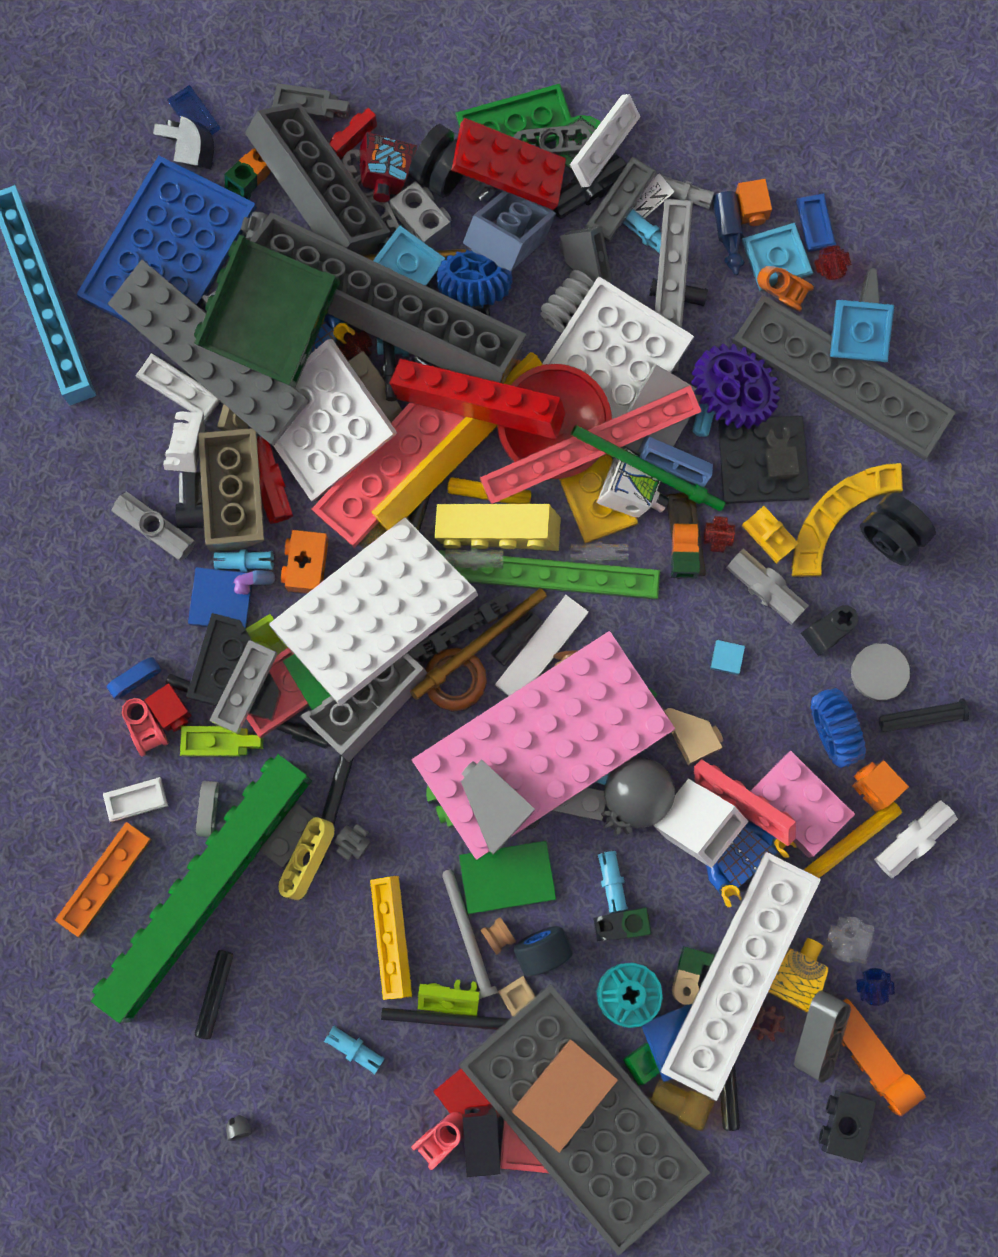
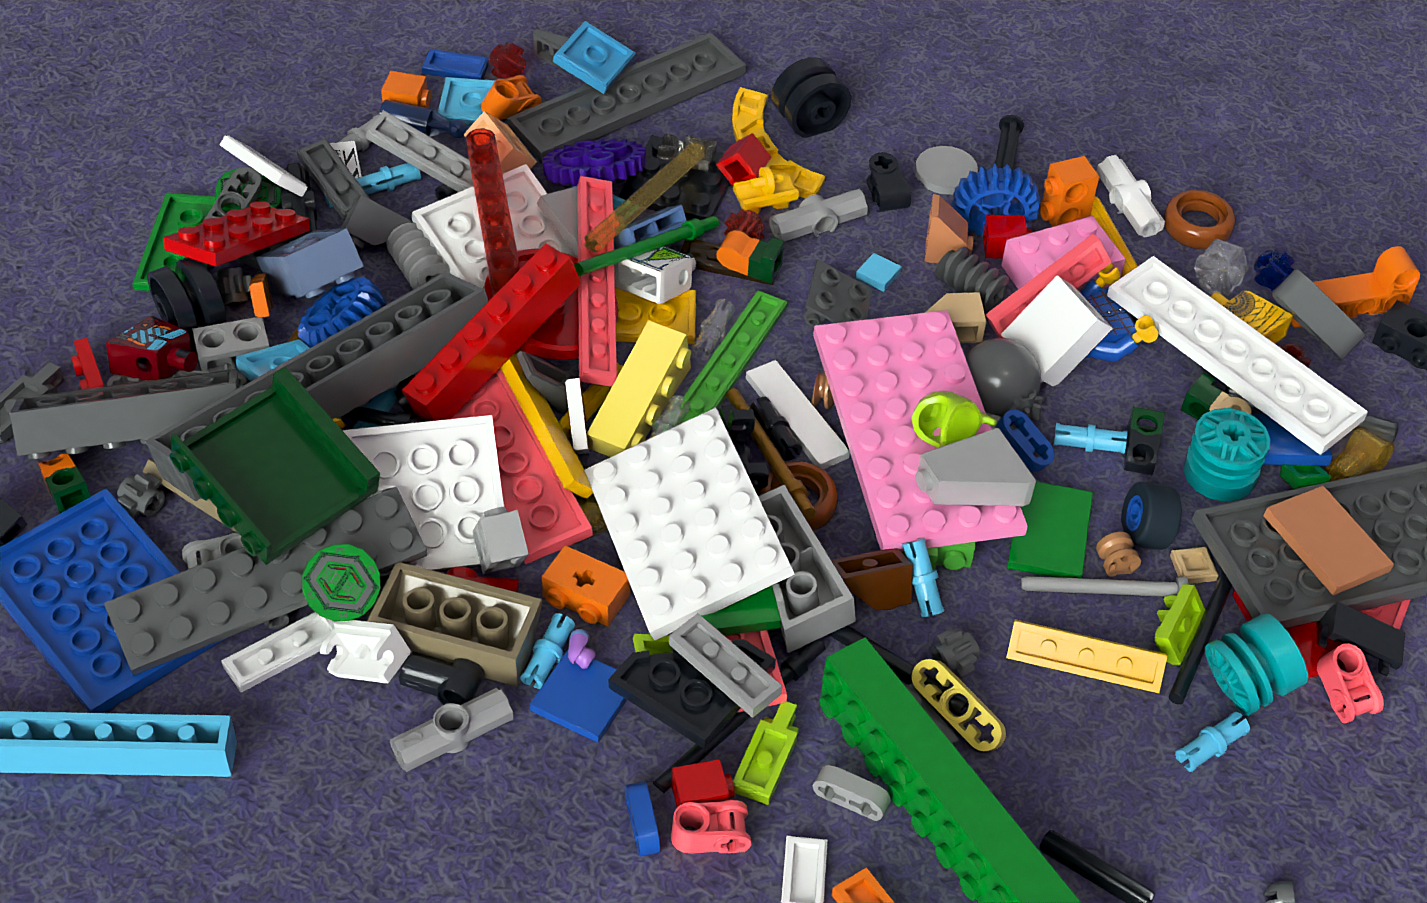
camera: 70 degrees left, 30 degrees down
(215, 401) = (340, 582): none -> tile
(299, 489) = (500, 540): none -> light grey brick
(386, 760) = (878, 577): none -> reddish brown slope
(405, 797) = (923, 578): none -> medium azure pin
(417, 1065) = (1256, 663): none -> teal wheel
(451, 490) = (577, 416): none -> white tile
(462, 210) = (261, 295): none -> orange tile
(487, 464) = (546, 379): none -> dark grey slope
(543, 773) = (952, 413): none -> lime piece
(588, 834) = (1026, 440): none -> blue beam
(617, 326) = (492, 208): none -> clear red beam
(677, 636) = (835, 297): none -> dark grey hinge
(693, 445) = (644, 197): none -> clear yellow axle
(719, 305) = (510, 149): none -> light nougat brick
(745, 737) = (968, 276): none -> dark grey piece
(783, 699) = (945, 231): none -> nougat slope
(796, 503) = (743, 160): none -> red brick
(812, 748) = (998, 230): none -> red brick
(937, 896) = (1193, 235): none -> dark orange wheel

